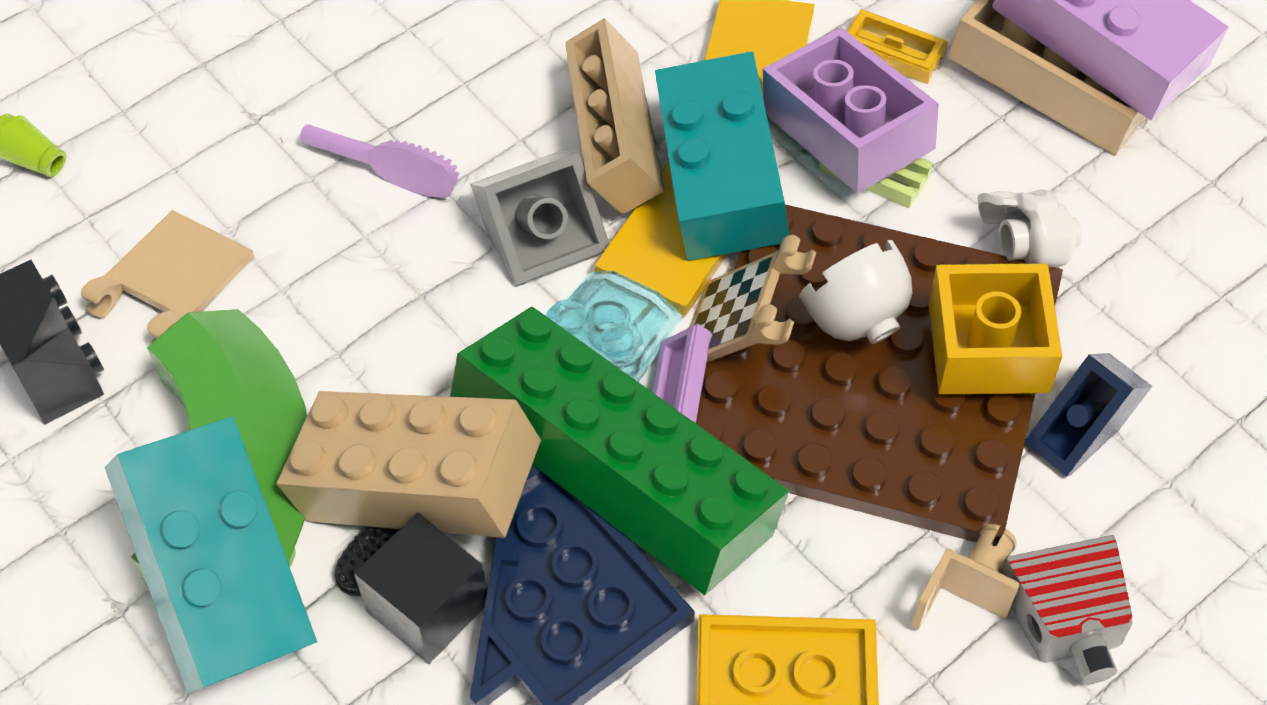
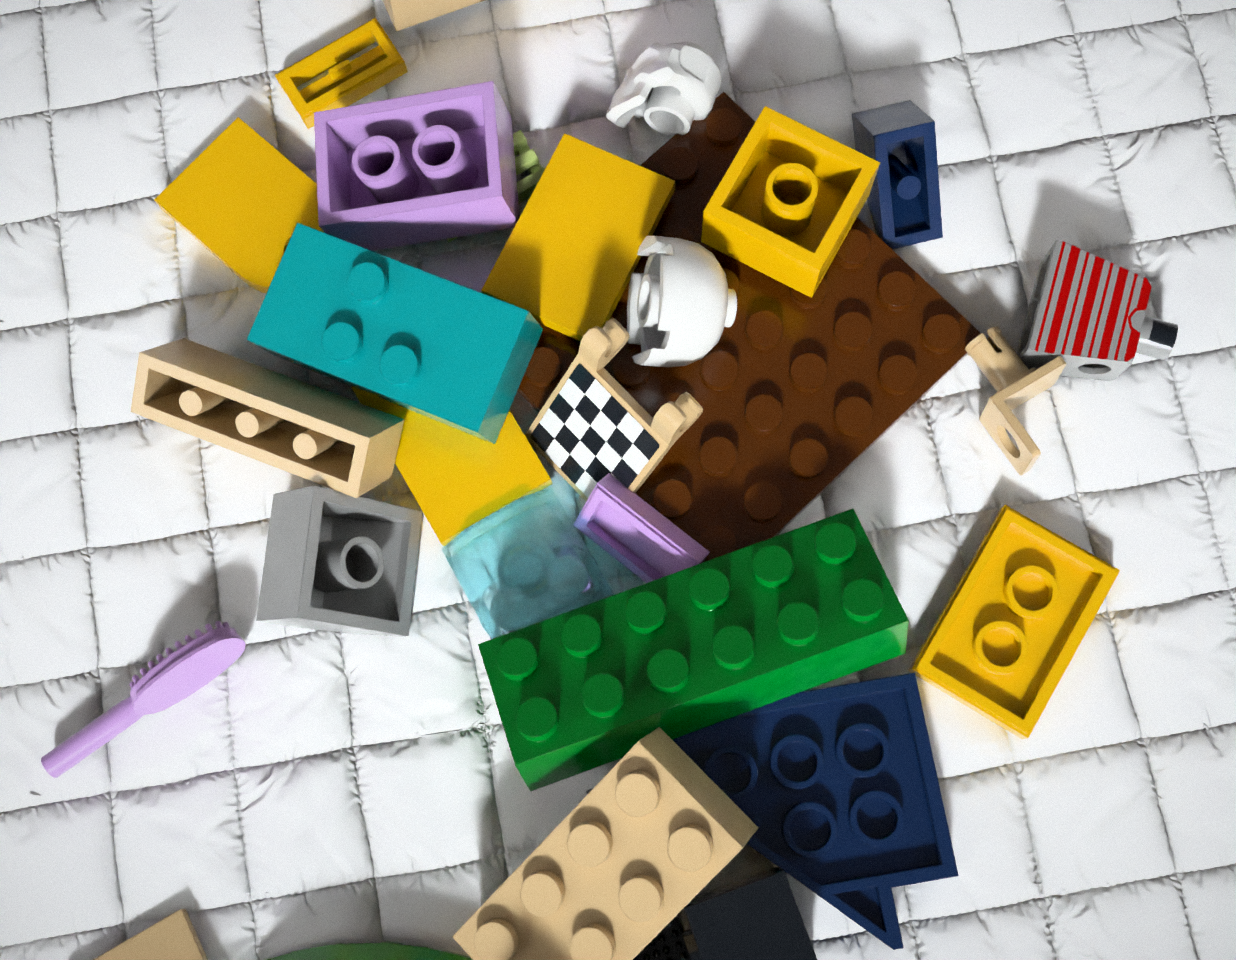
camera: 55 degrees left, 20 degrees up
(854, 215) = (579, 238): none -> yellow tile

